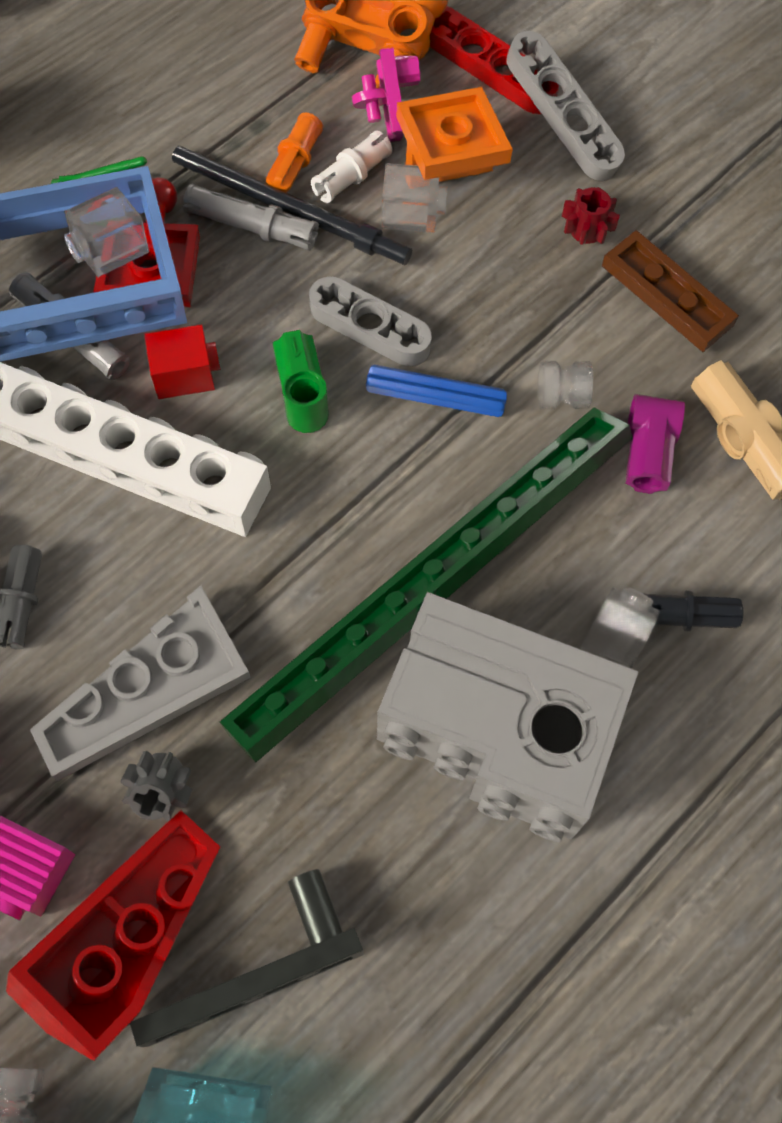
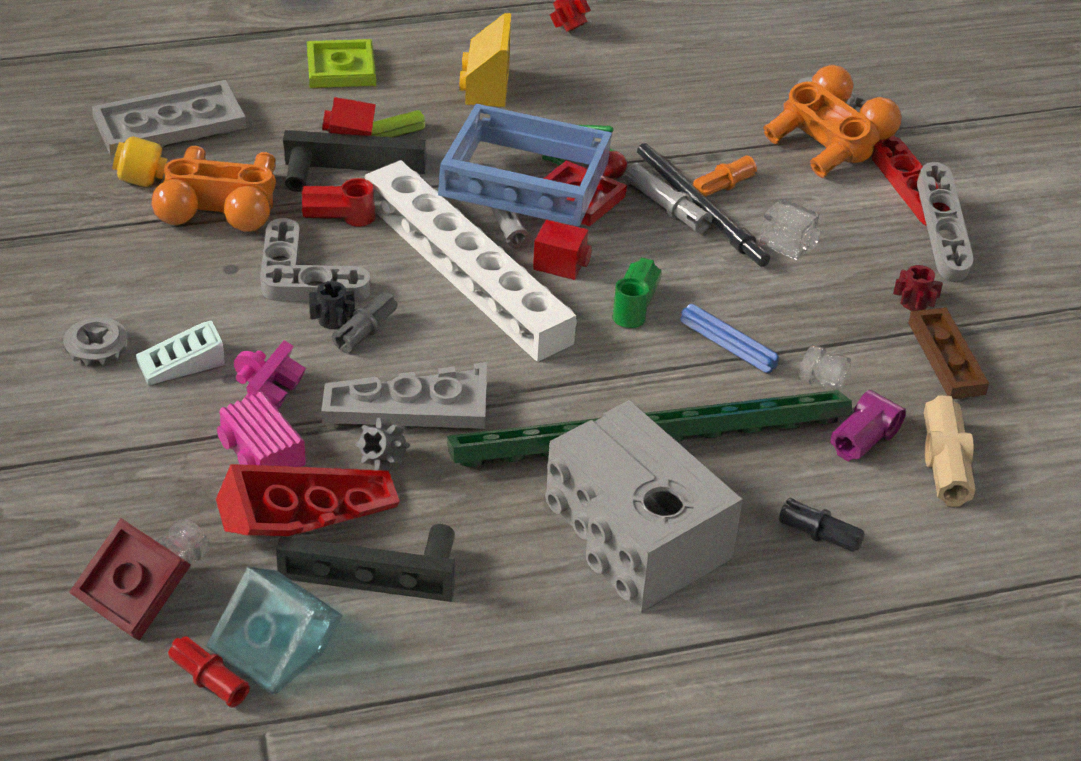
camera: 30 degrees right, 25 degrees down
(105, 232) = (555, 146): clear brick -> none
(351, 166) = (758, 198): white pin -> none
(359, 303) = (713, 298): light grey beam -> none
(392, 74) = (814, 180): dark pink hips -> none
(453, 134) = (842, 202): orange bracket -> none
(622, 627) = (763, 503): clear brick -> none

